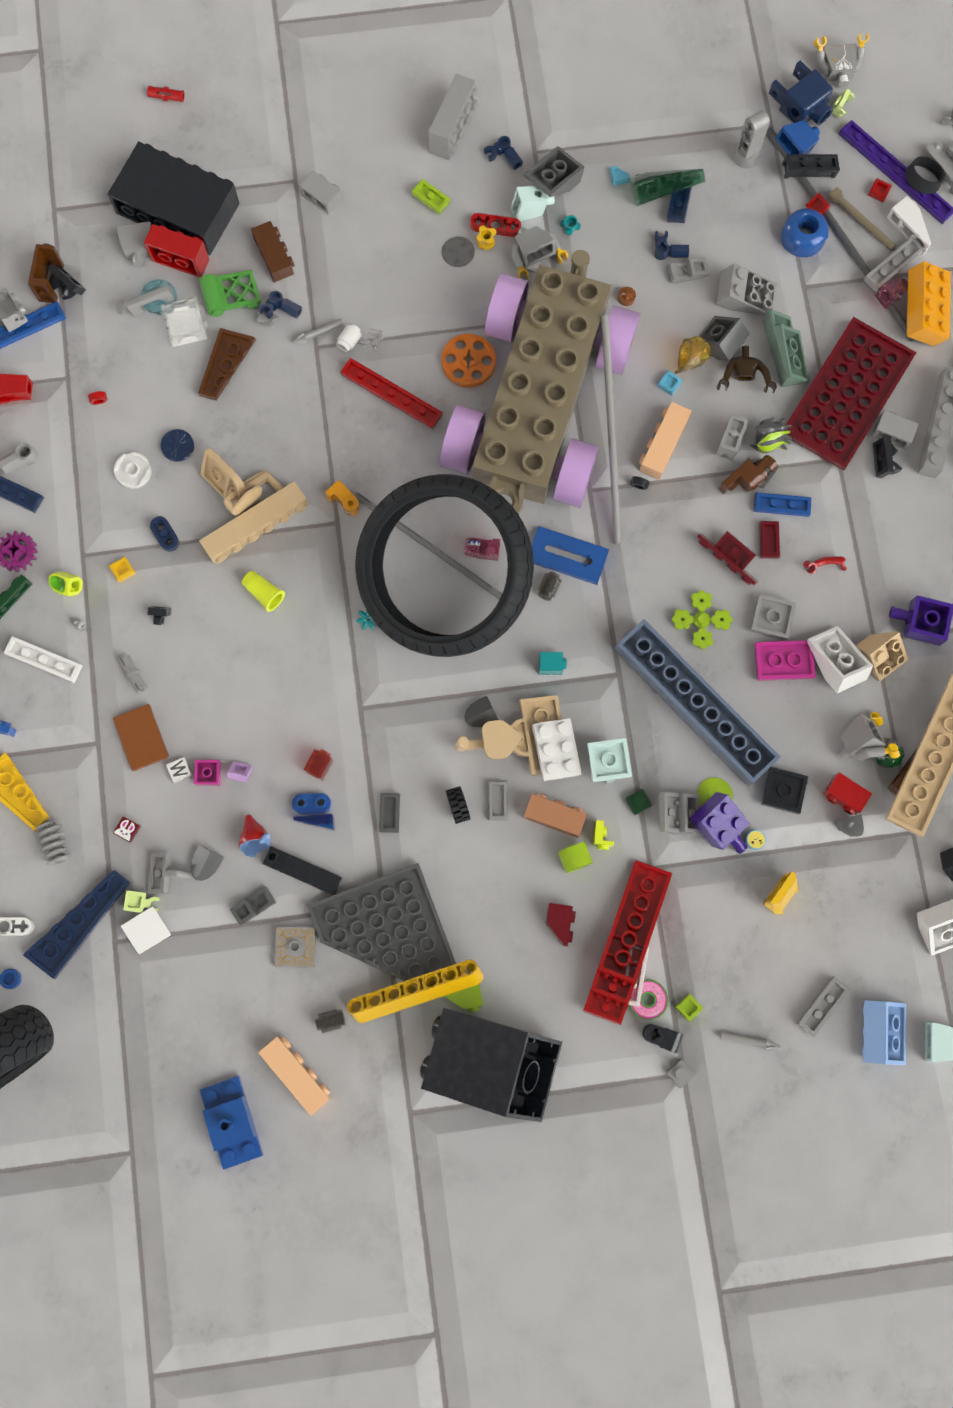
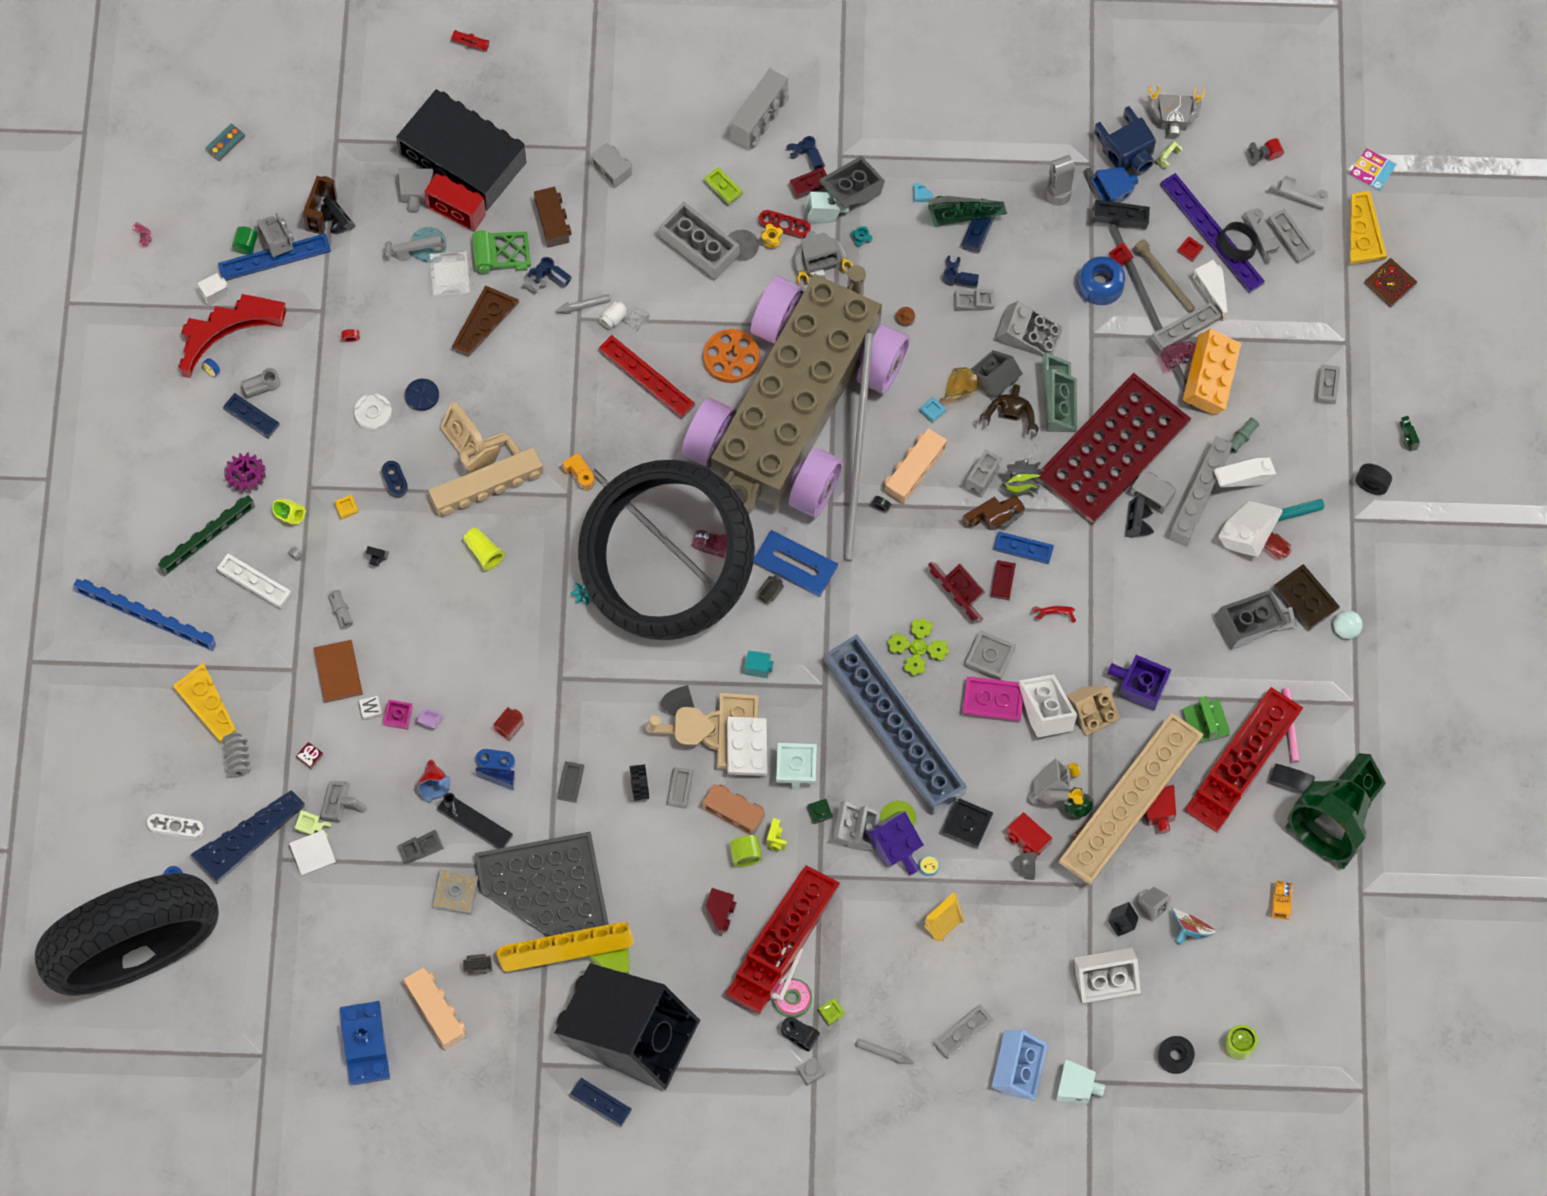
camera: 10 degrees right, 10 degrees down
(204, 863) = (381, 798): dark grey brick -> none
(418, 252) = (699, 240): none -> light grey brick
(479, 1145) = (601, 1102): none -> dark blue plate
(510, 181) = (807, 183): none -> dark red plate
(936, 85) = (1271, 149): none -> leg

